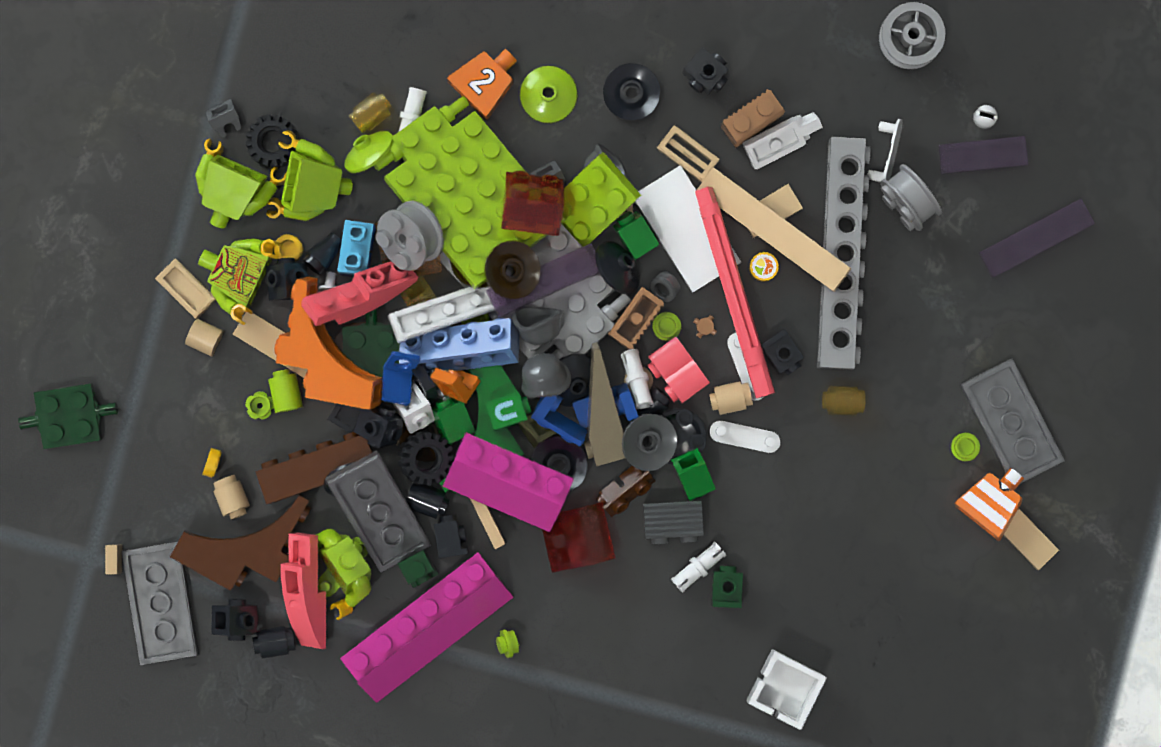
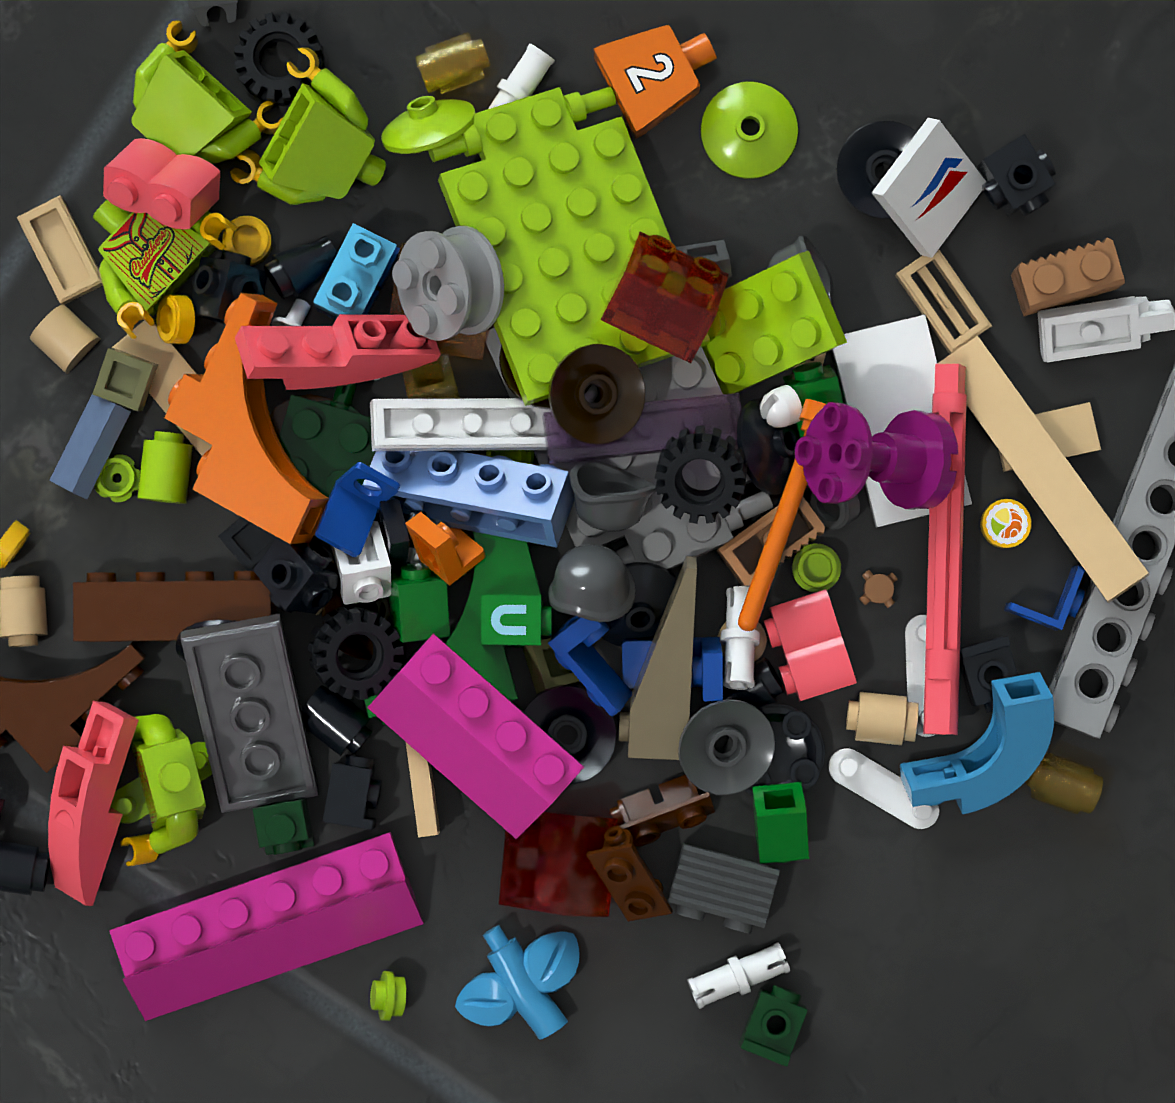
camera: 25 degrees right, 0 degrees up
(231, 233) = (162, 184): none -> coral brick
(238, 392) = (90, 446): none -> sand blue tile
(246, 348) = (125, 379): none -> olive plate
(263, 306) = (175, 319): none -> yellow tile
(579, 611) = (521, 981): none -> dark azure plant
(585, 279) = (701, 502): none -> black tyre
(617, 243) = (781, 407): none -> white hinge
(618, 532) = (628, 877): none -> reddish brown hinge
(640, 246) = (778, 533): none -> orange piece
(659, 94) = (929, 187): none -> white tile
(696, 249) = (906, 459): none -> magenta piece
(803, 398) = (998, 759): none -> dark azure arch
(813, 300) = (1067, 606): none -> blue bracket

